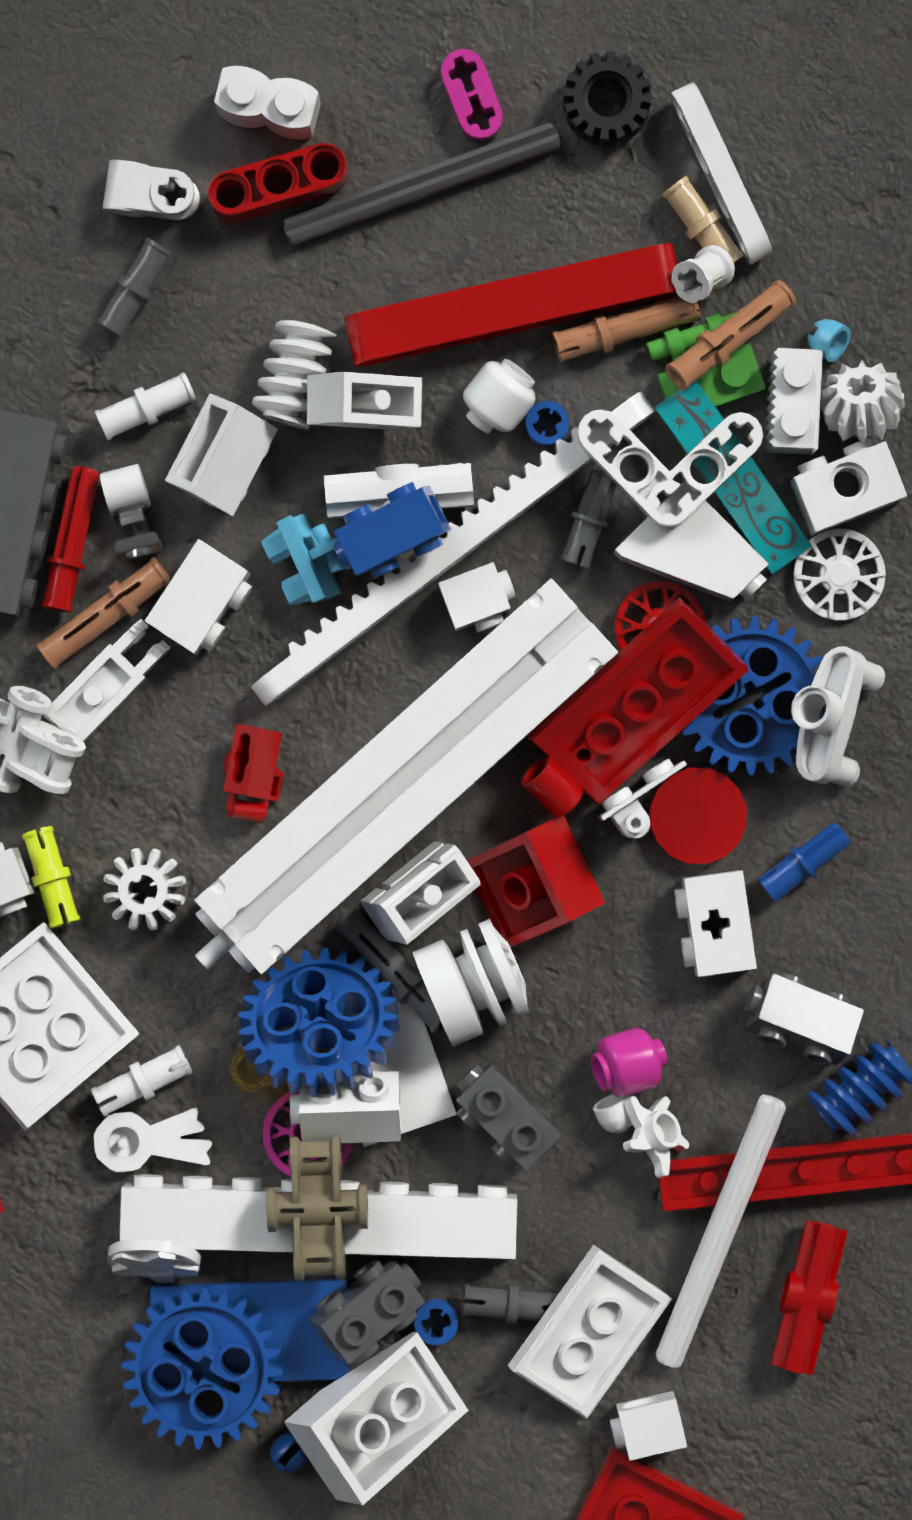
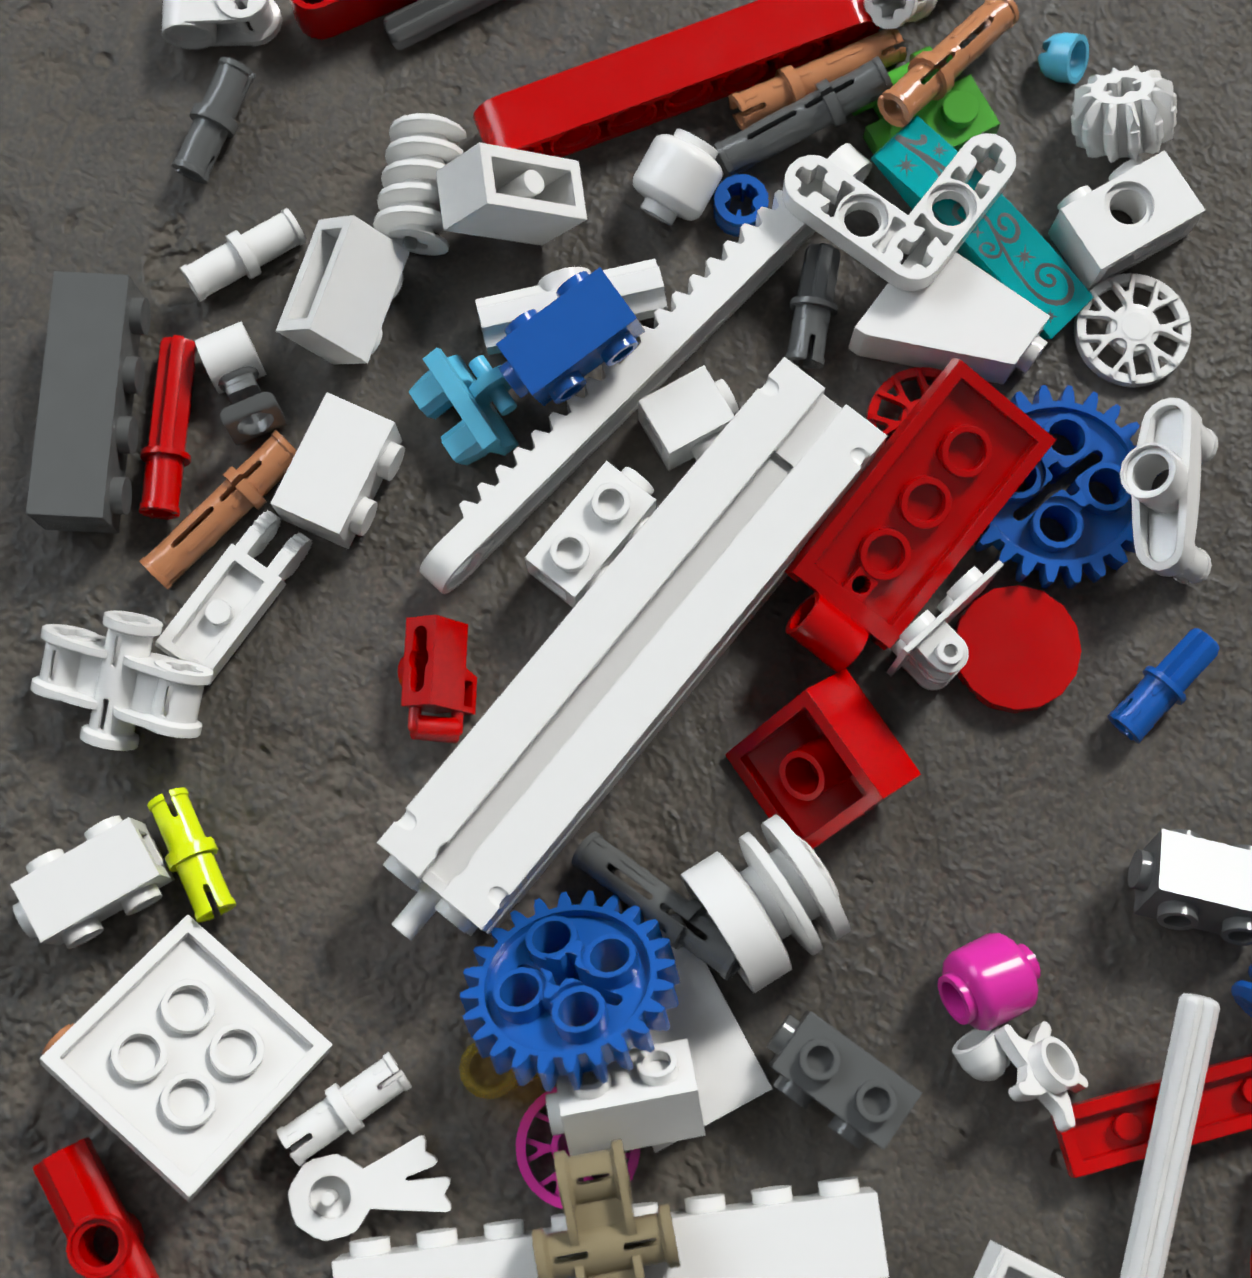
camera: 15 degrees left, 10 degrees down
(138, 874) = (305, 830): white gear -> none
(389, 679) = (591, 532): none -> white brick
(420, 892) = (678, 795): white brick -> none
(607, 363) = (810, 114): none -> dark grey pin
(734, 946) = (1071, 745): white brick -> none
(794, 401) = (1041, 127): white brick -> none

